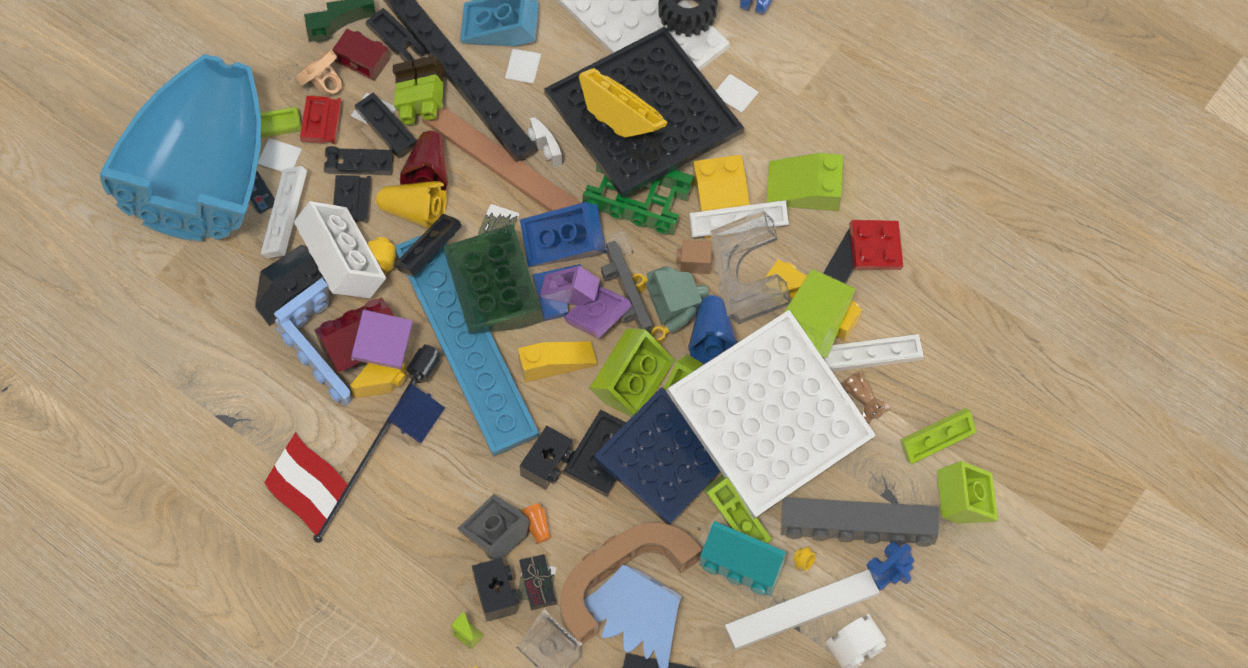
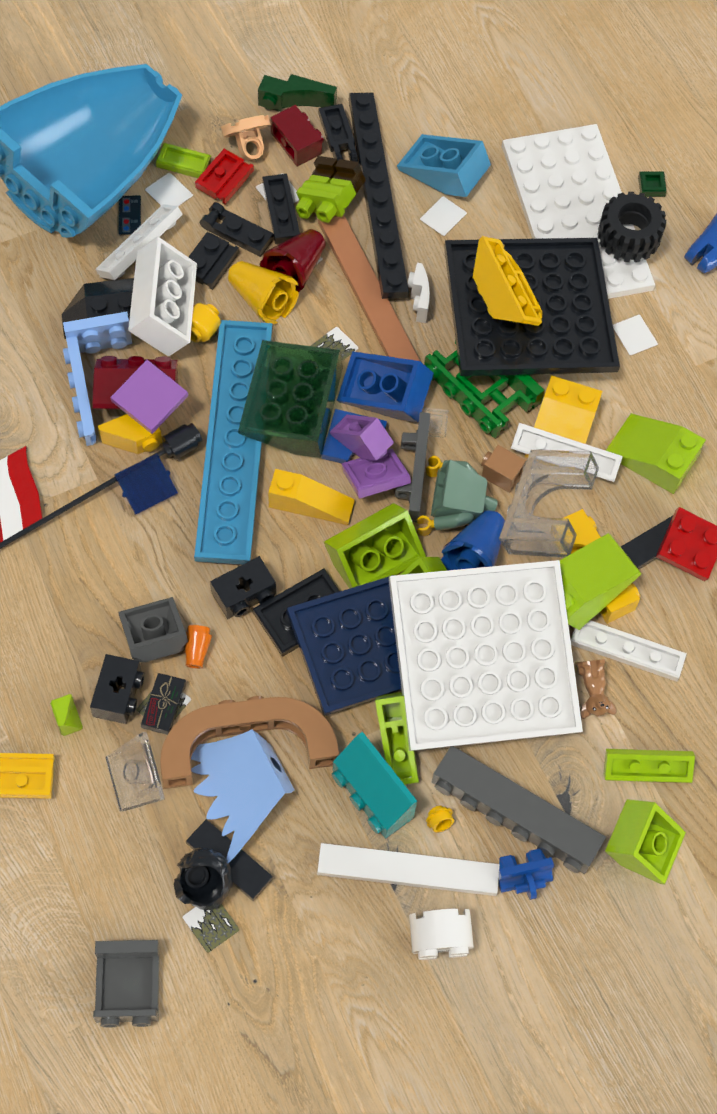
camera: 25 degrees right, 0 degrees up
(428, 245) = (250, 332): black plate -> none

